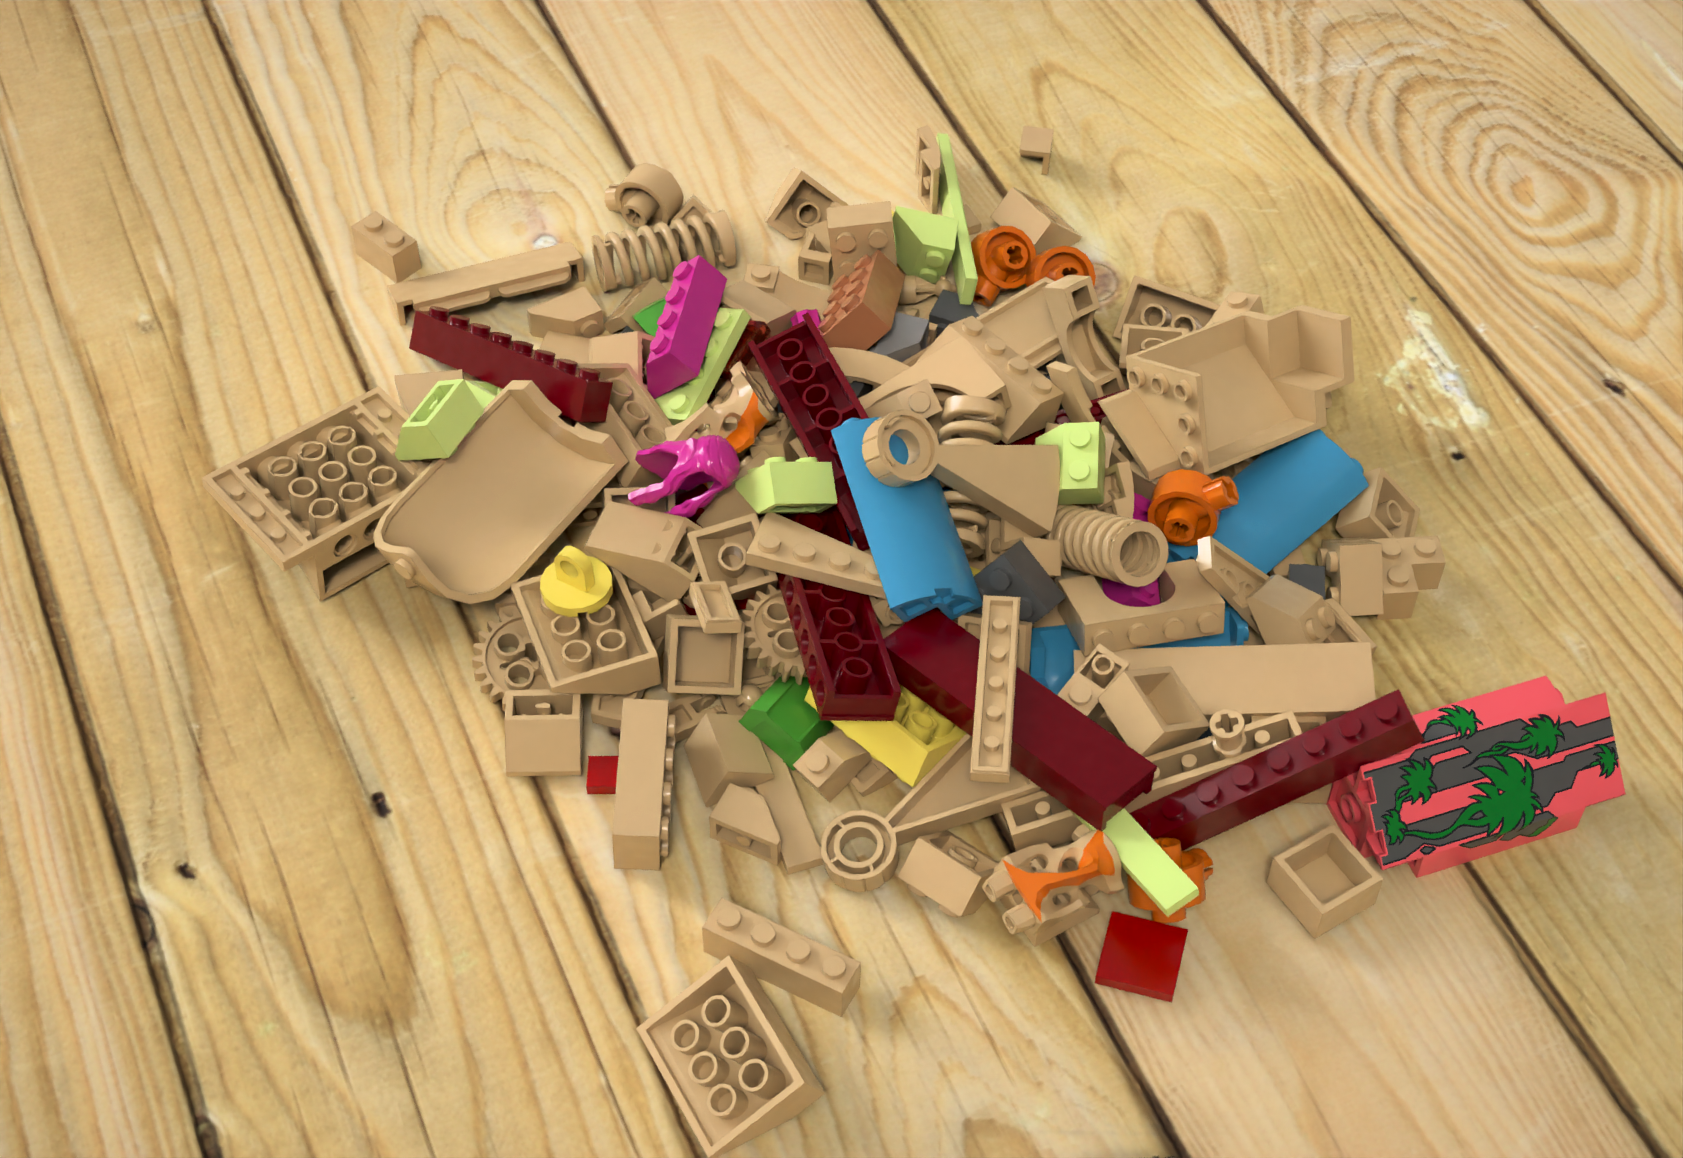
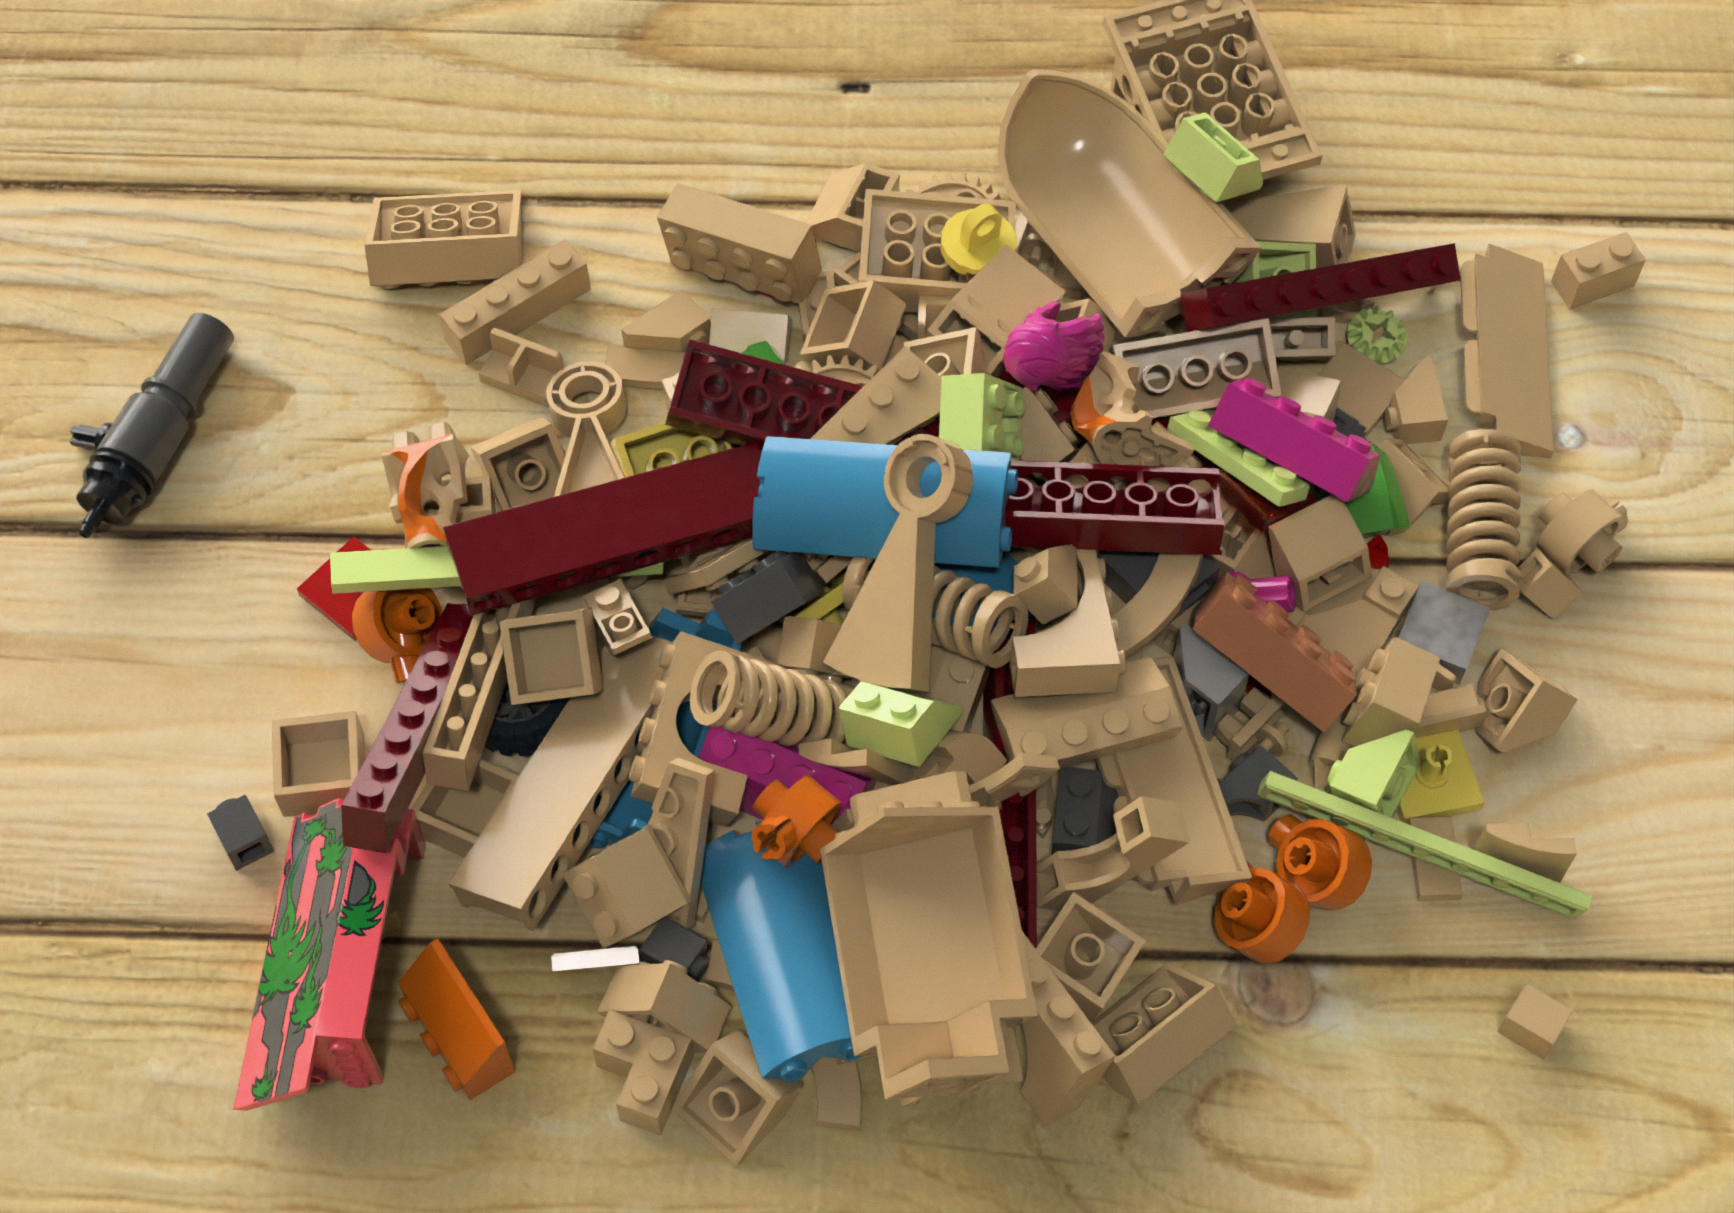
camera: 115 degrees right, 10 degrees up
(715, 607) = (873, 323): tan tile -> none
(768, 248) = (1445, 626): none -> flat silver piece
(851, 923) = (520, 366): none -> tan panel
(995, 690) = (638, 503): tan tile -> none
(1035, 220) = (1390, 955): tan slope -> none
(1228, 734) = (473, 684): tan bush -> none
(1413, 918) = (240, 831): none -> dark grey brick
(1463, 672) = (454, 1023): none -> orange slope

